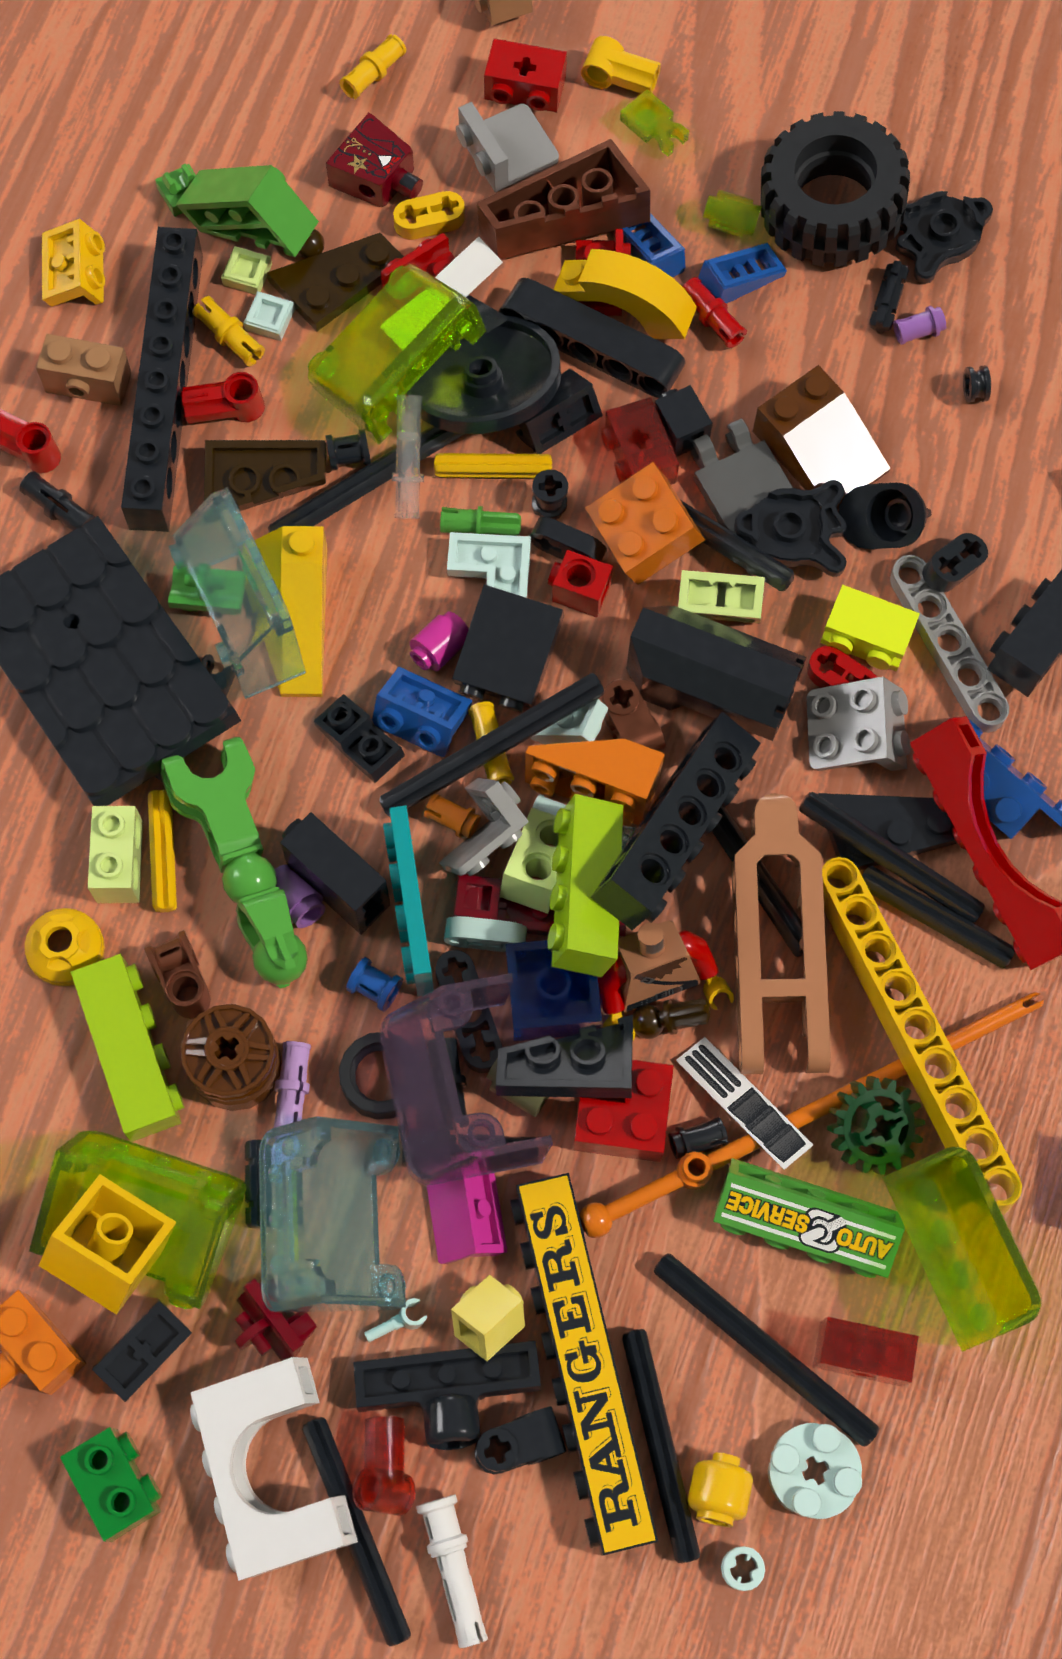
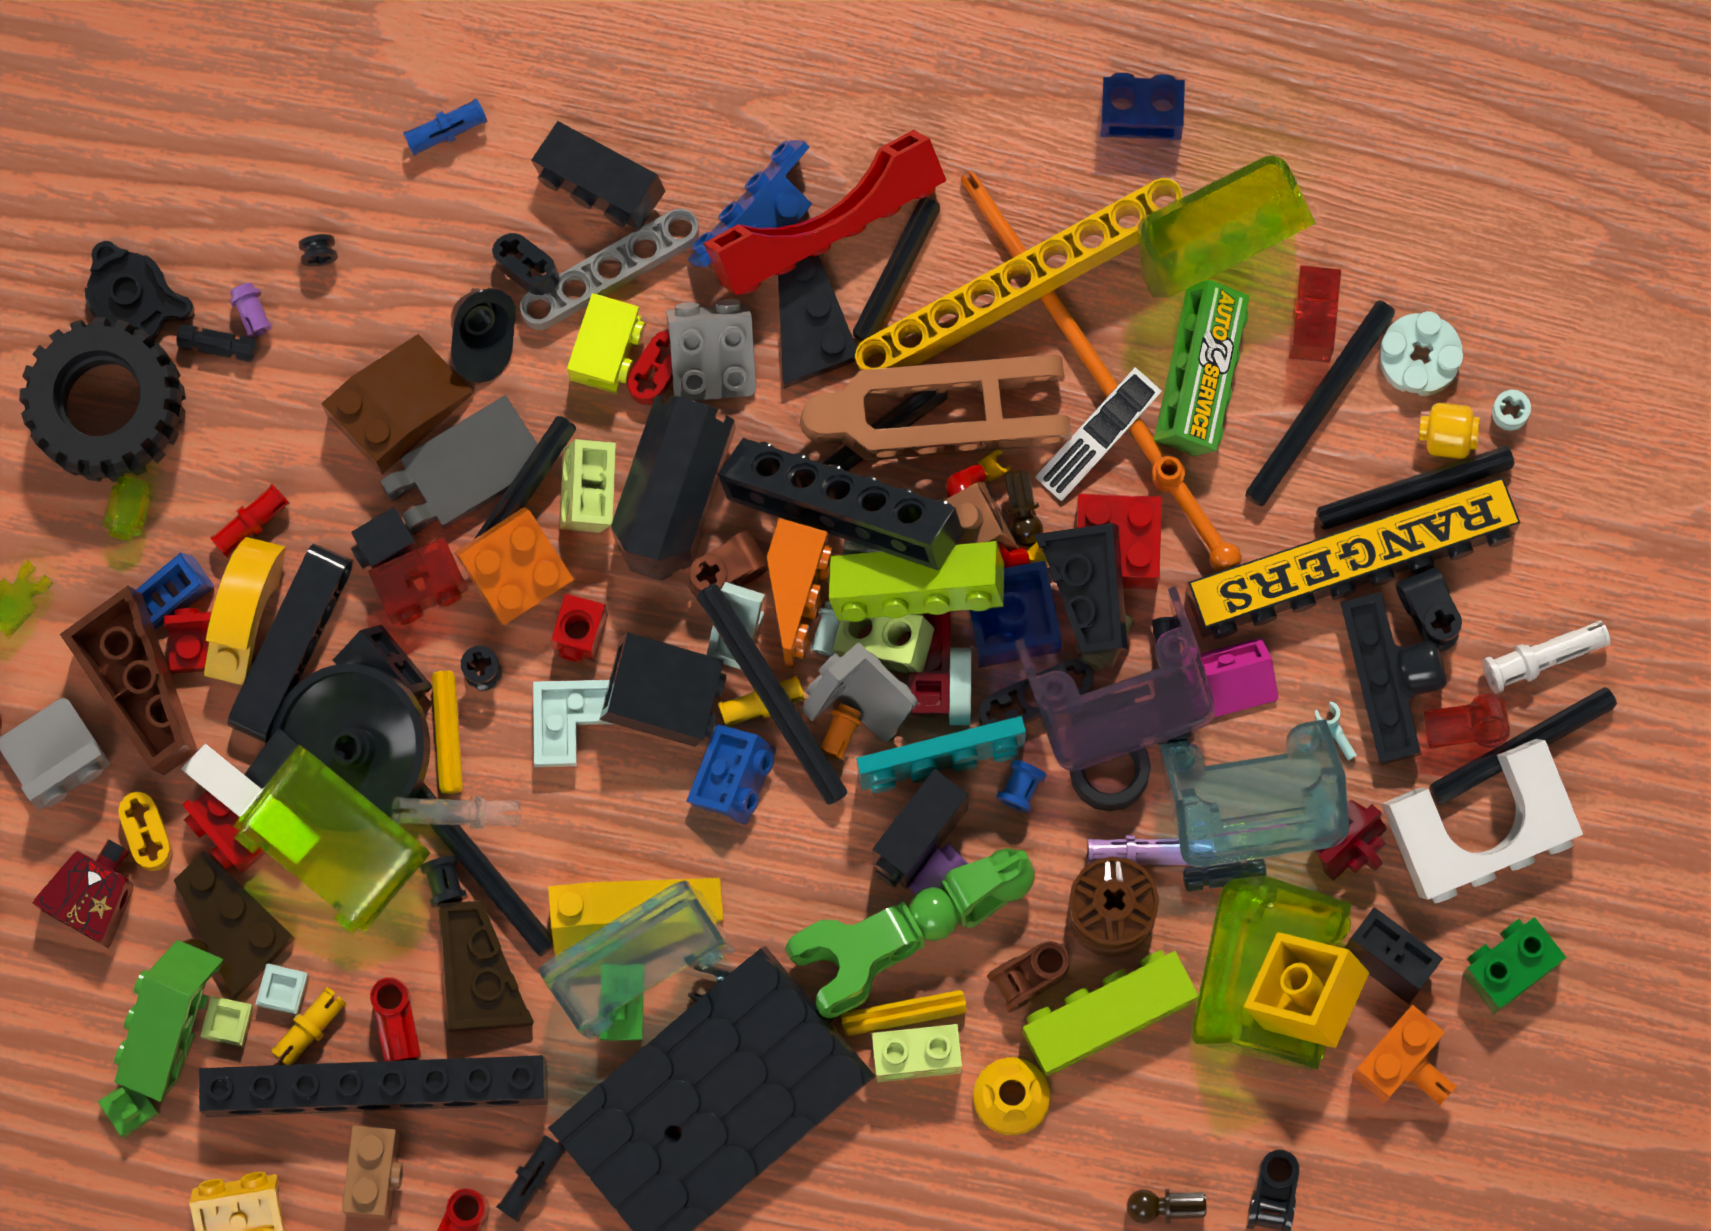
camera: 90 degrees left, 5 degrees up
(359, 738) = (765, 834): black slope -> none
(438, 641) = (655, 763): dark pink brick -> none
(479, 521) = (516, 737): bright green axle -> none
(488, 1317) = (1325, 644): light yellow brick -> none
(558, 537) = (534, 646): black beam -> none
(697, 1137) = (1135, 472): black pin -> none
(717, 278) = (210, 516): blue slope -> none
(797, 527) = (499, 420): black tile -> none
(857, 1120) = (1108, 313): dark green gear -> none
(891, 857) = (847, 311): black axle -> none

